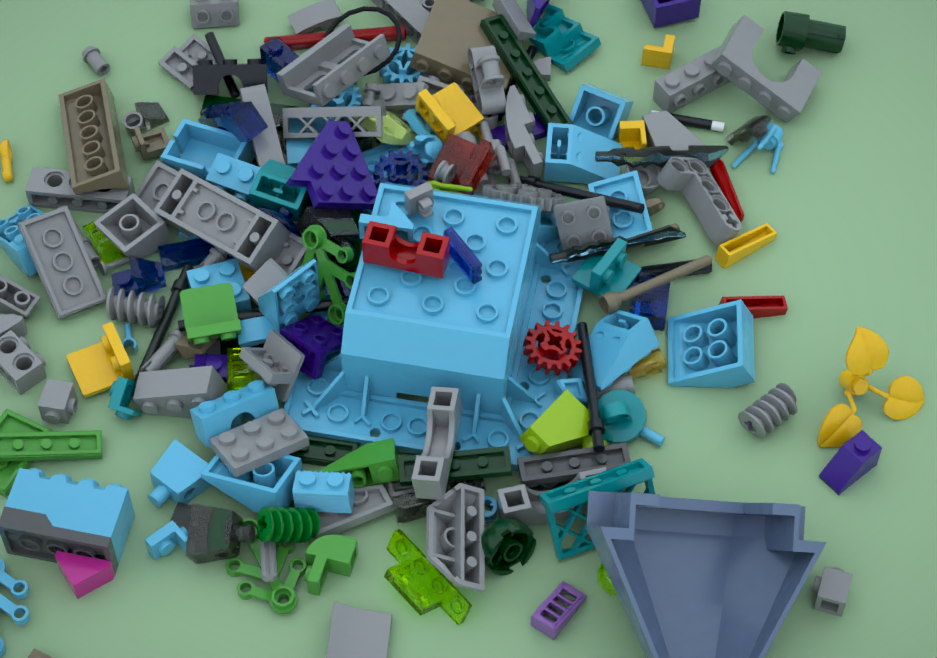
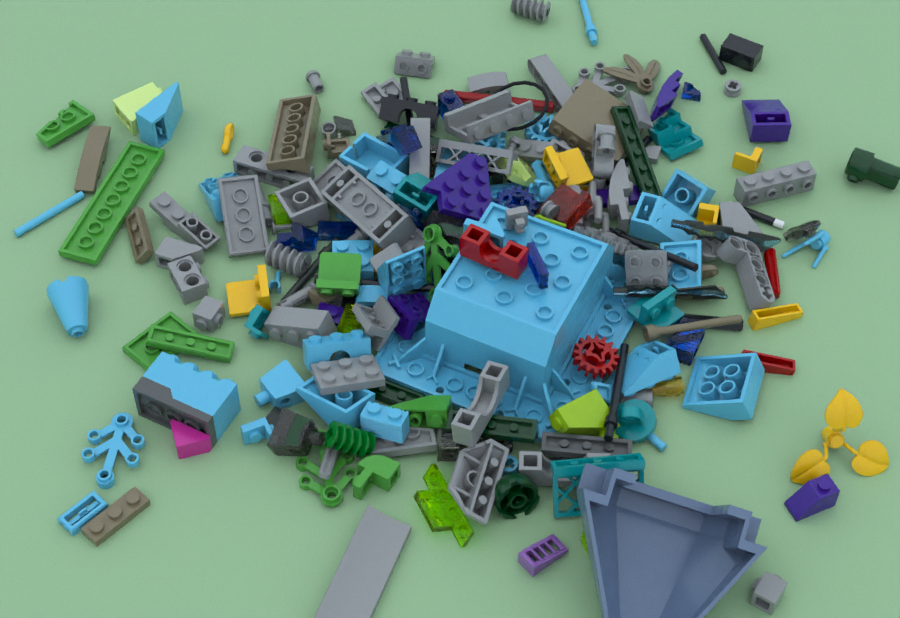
camera: 15 degrees right, 5 degrees down
(737, 64) = (805, 180): light grey arch -> none
(769, 411) = (756, 443): light grey piece -> none

